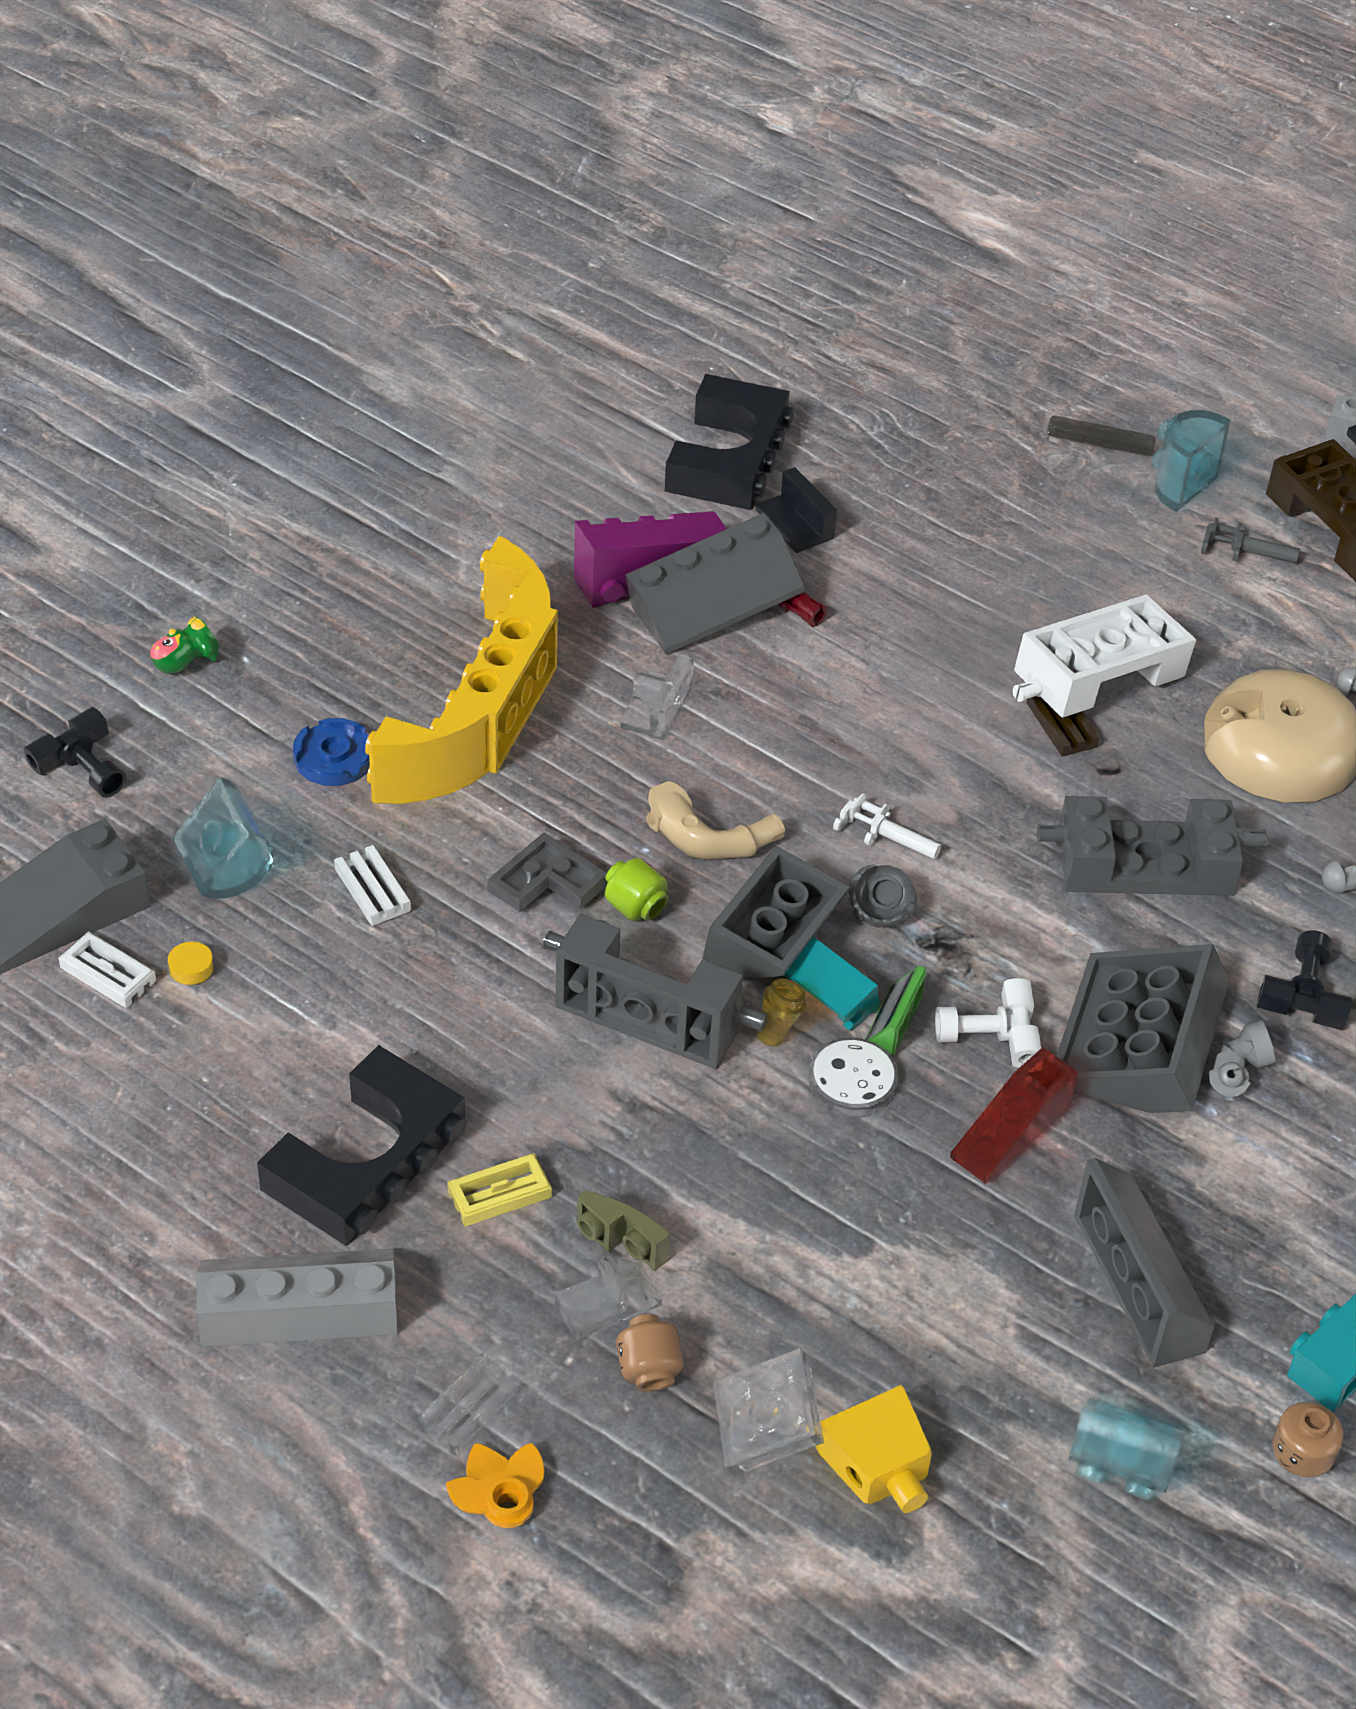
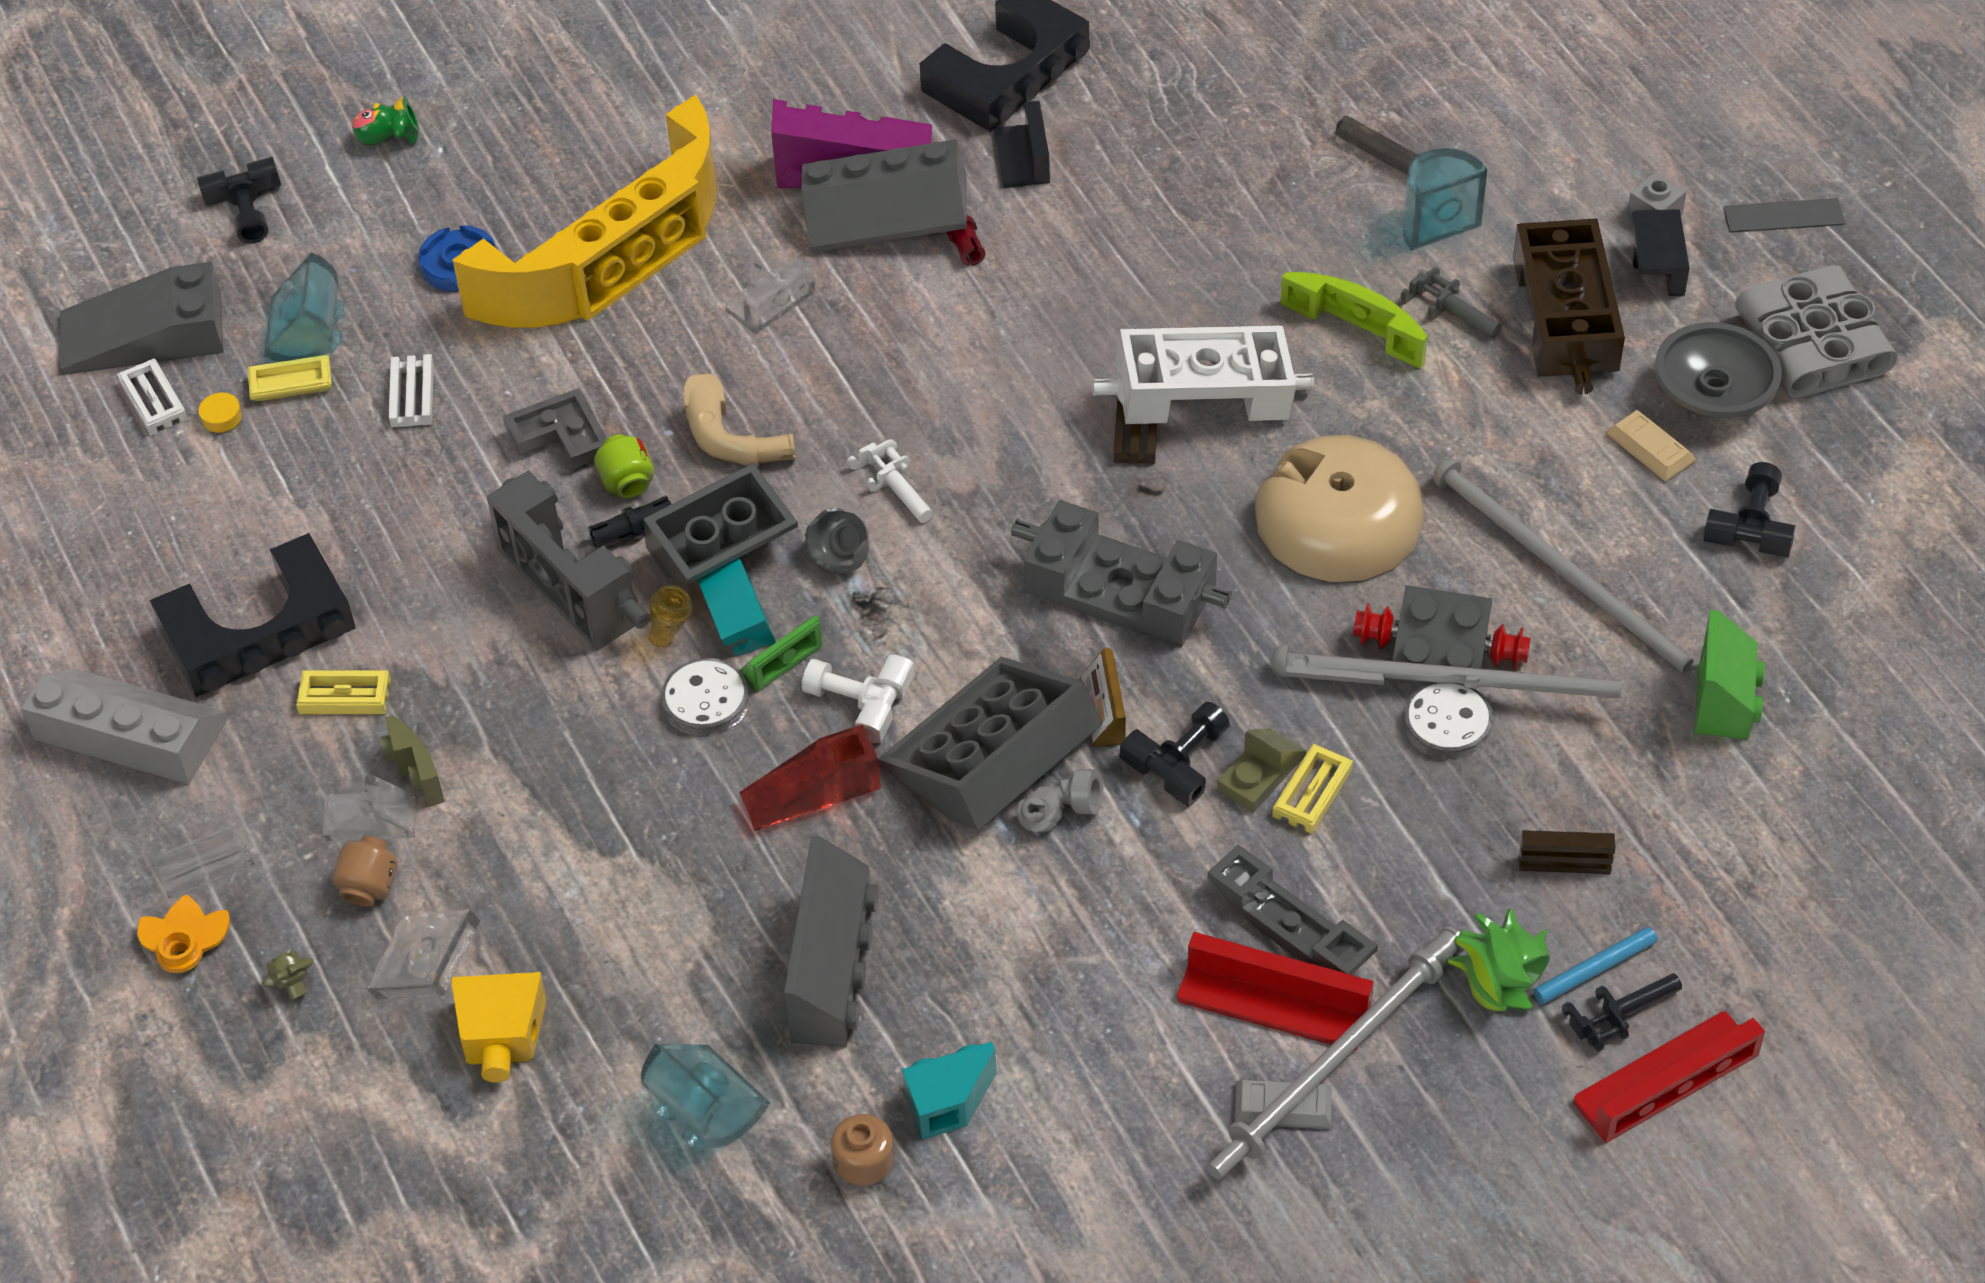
camera: 30 degrees right, 5 degrees up
(241, 909) = (289, 378): none -> light yellow tile
(639, 1482) = (287, 973): none -> olive plant
(675, 940) = (625, 525): none -> black pin
(1186, 567) = (1354, 303): none -> lime slope
(1239, 969) = (1104, 689): none -> slope

